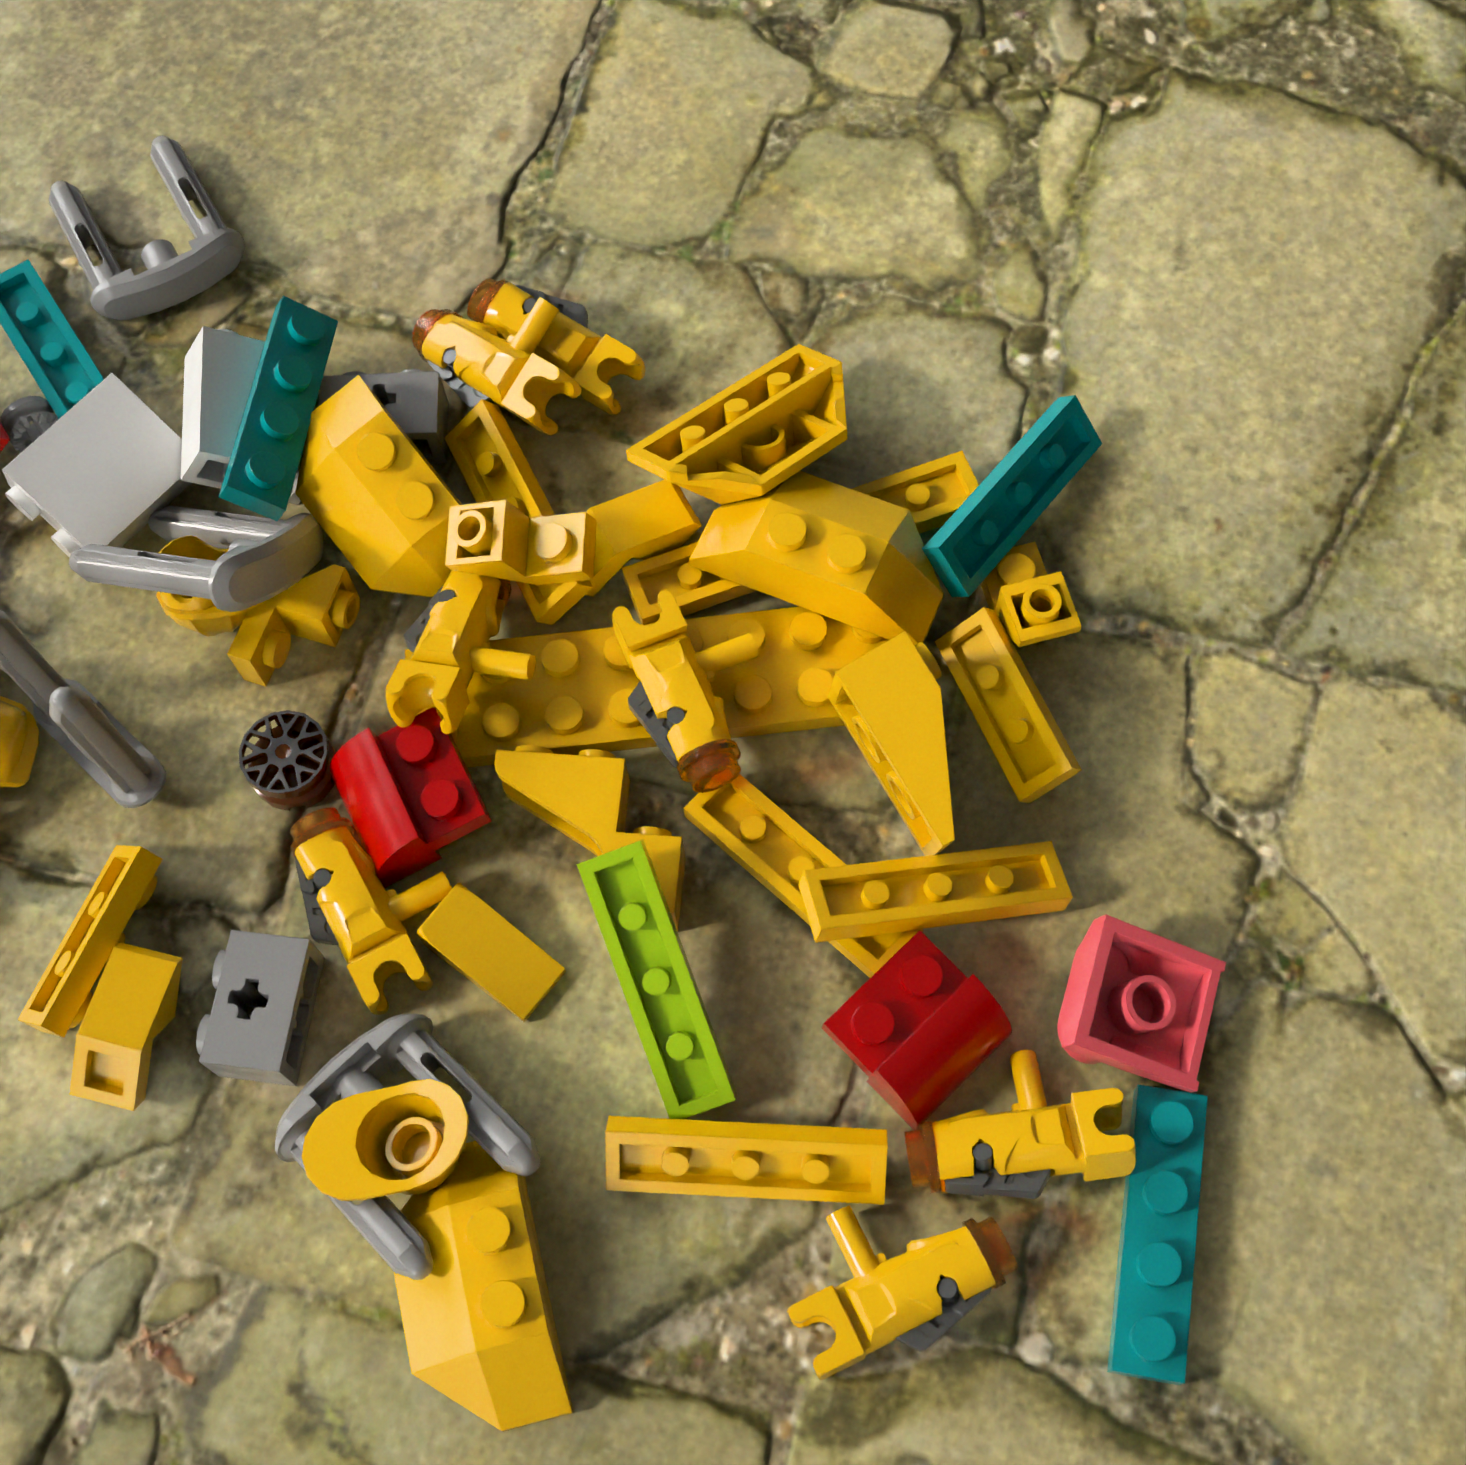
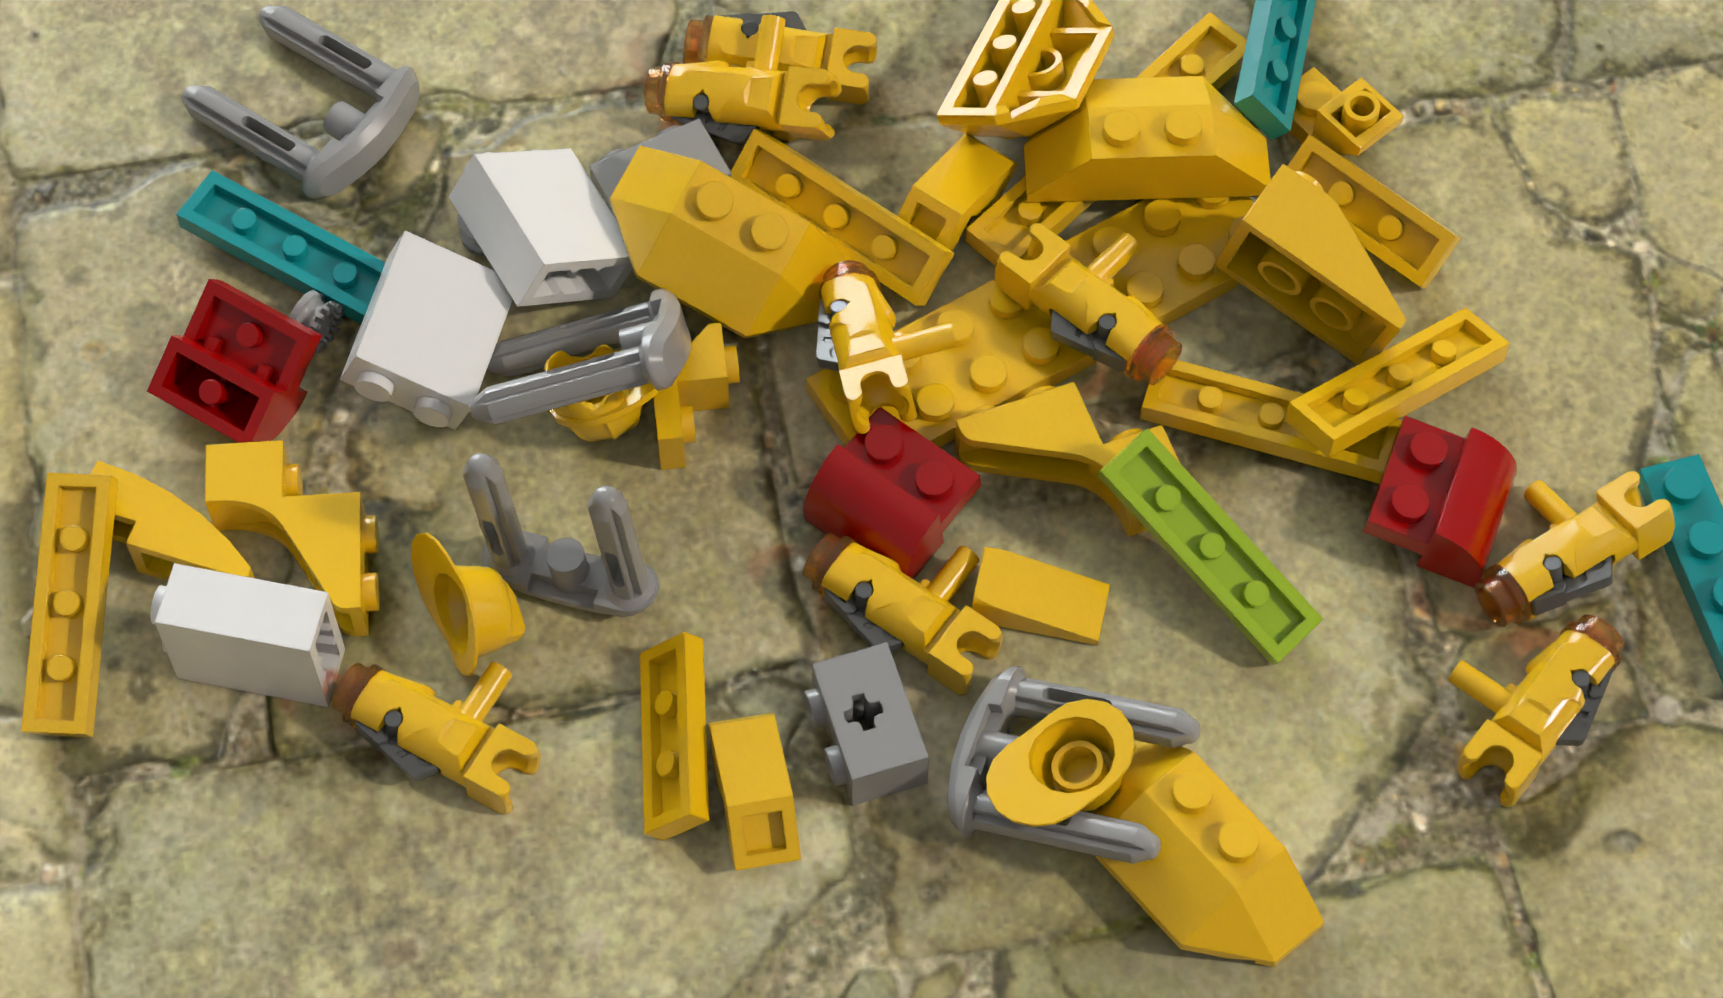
camera: 30 degrees left, 5 degrees down
(279, 409) = (580, 204): teal plate -> none
(289, 761) = (759, 514): reddish brown wheel -> none
(508, 545) = (890, 239): yellow slope -> none
(746, 1159) = (1357, 662): yellow plate -> none
(1139, 1003) = (1606, 403): coral slope -> none

